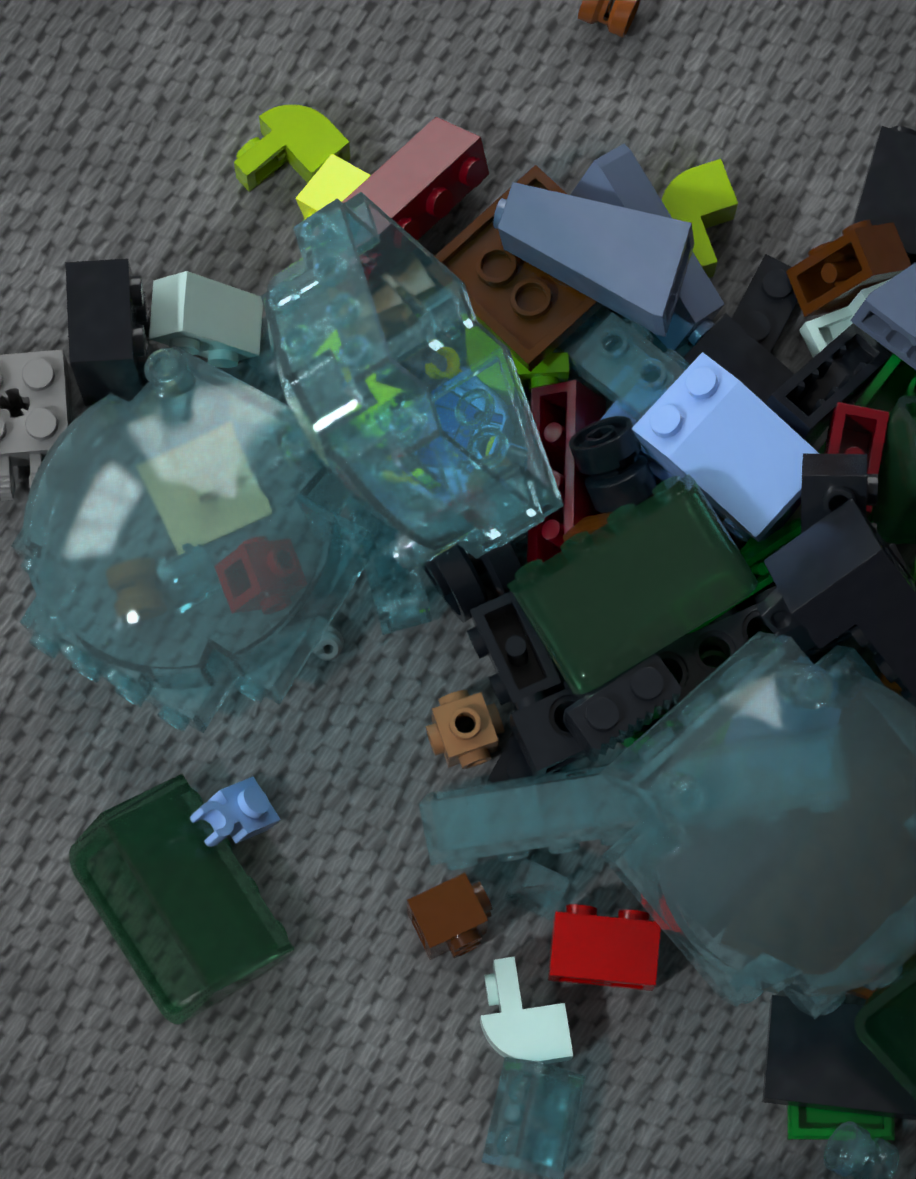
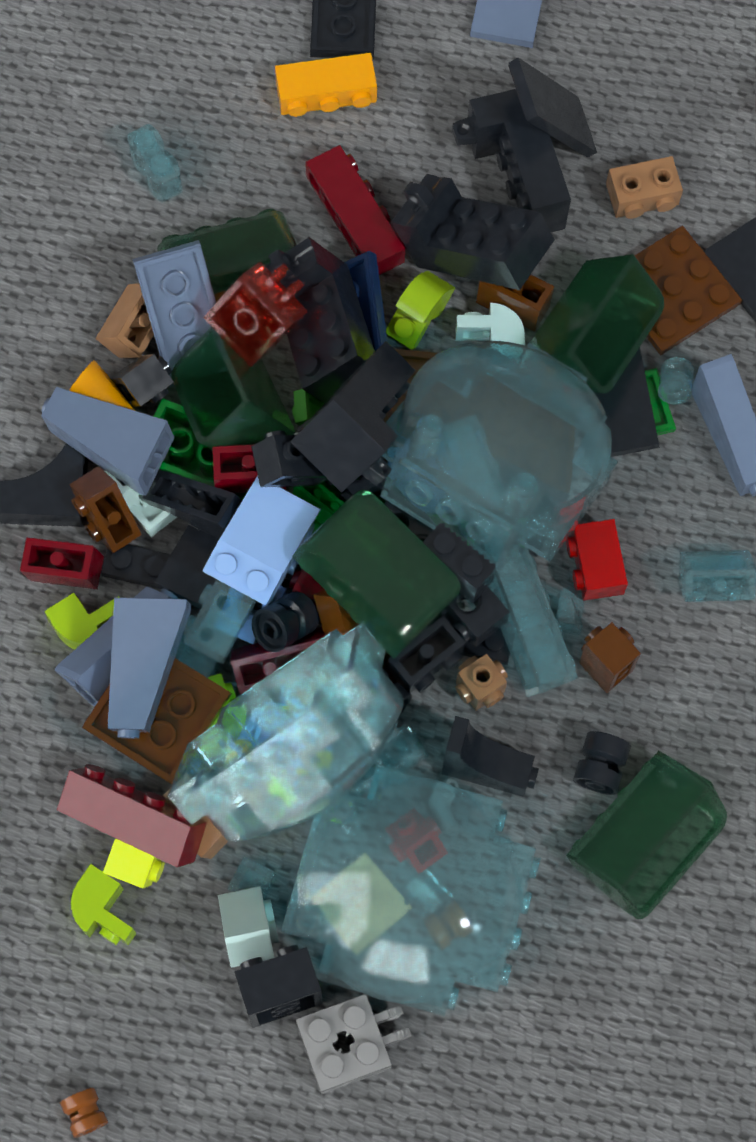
camera: 105 degrees left, 5 degrees down
(31, 70) = (84, 1112): none -> dark orange wheel
(238, 812) = (579, 812): light blue plate -> none
(300, 866) = (602, 760): none -> black wheel
(346, 699) = (486, 762): none -> black arch
(522, 1033) = (663, 599): light aqua brick -> none
(786, 198) = (61, 563): none -> dark red brick

